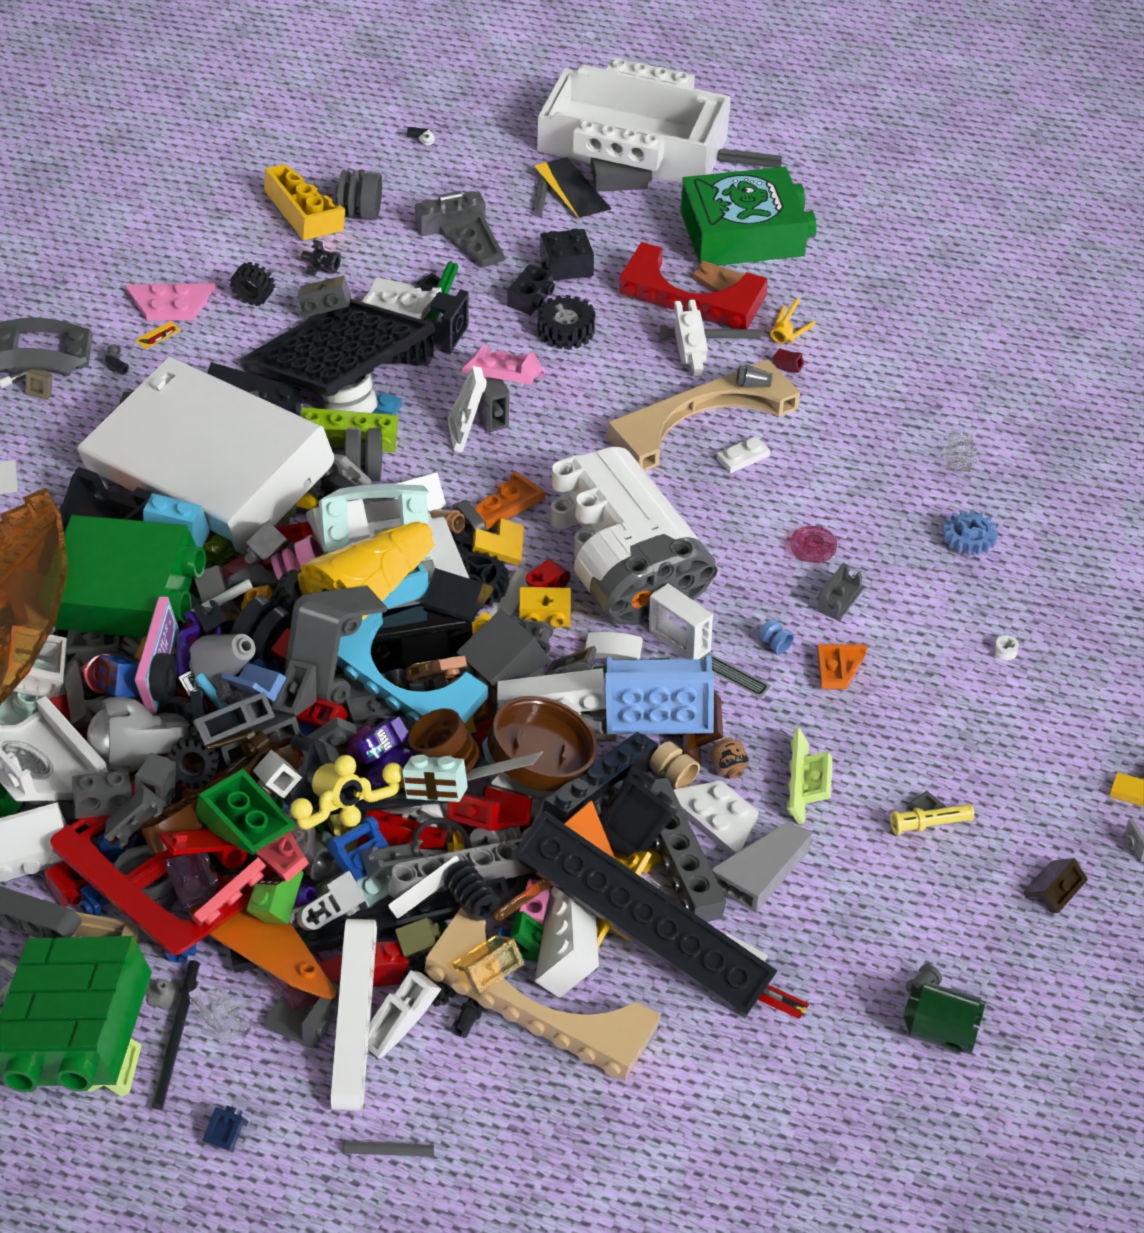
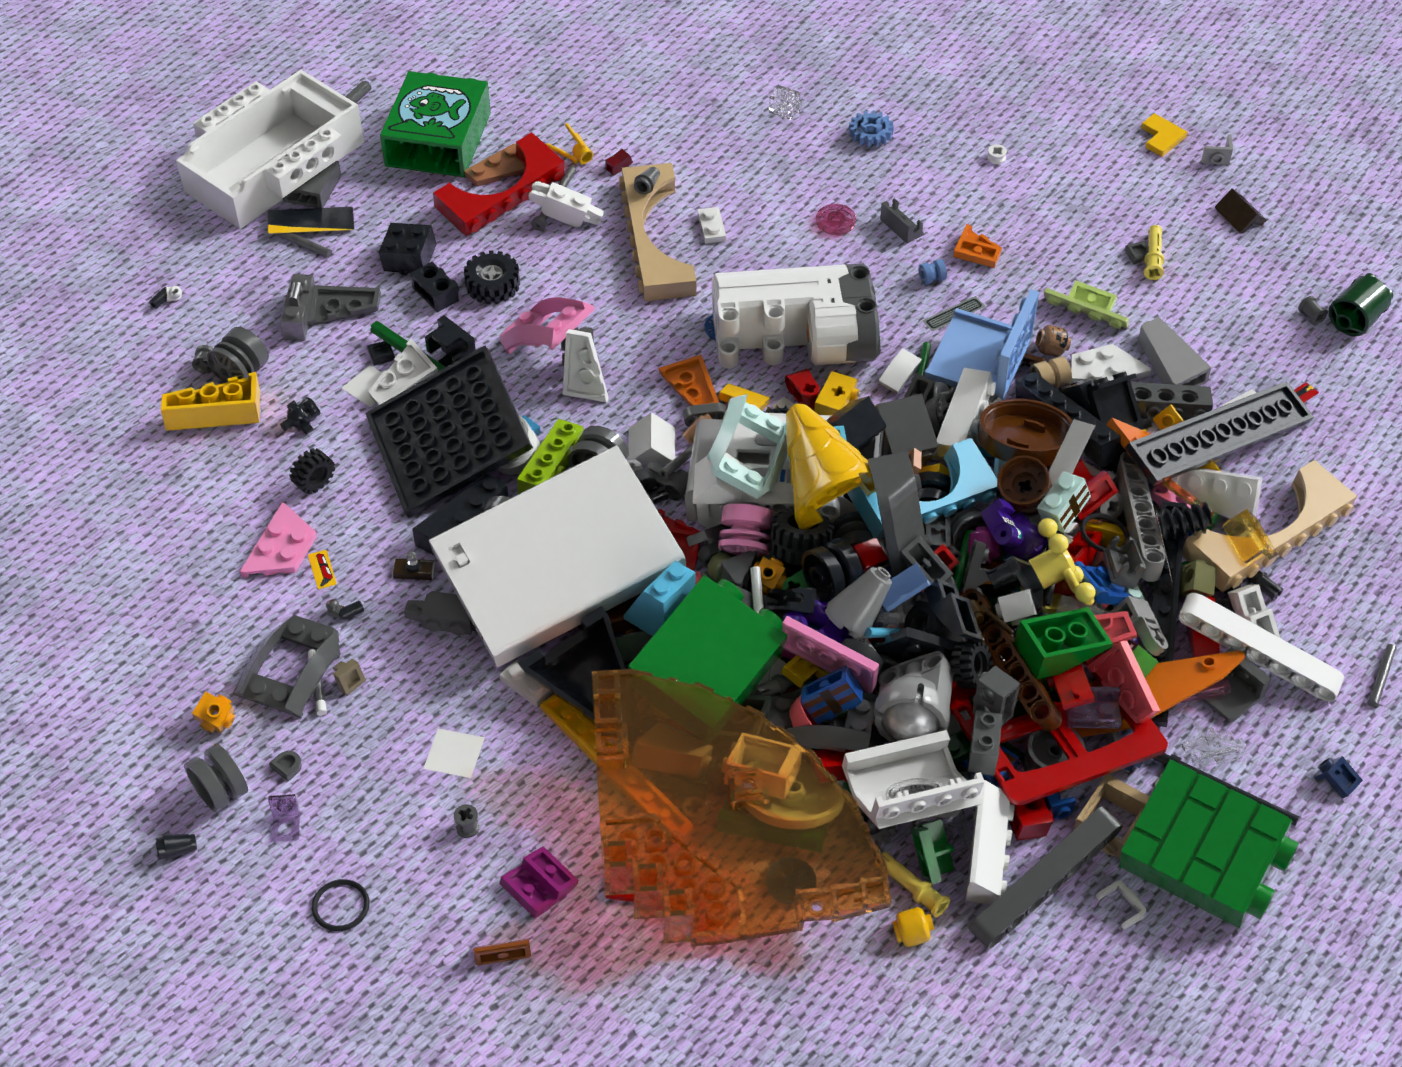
camera: 65 degrees left, 5 degrees up
(132, 815) = (1025, 724): dark grey hinge -> none
(264, 543) = (716, 537): flat silver piece -> none
(324, 296) = (364, 423): dark grey brick -> none
(680, 622) = (905, 316): white window -> none

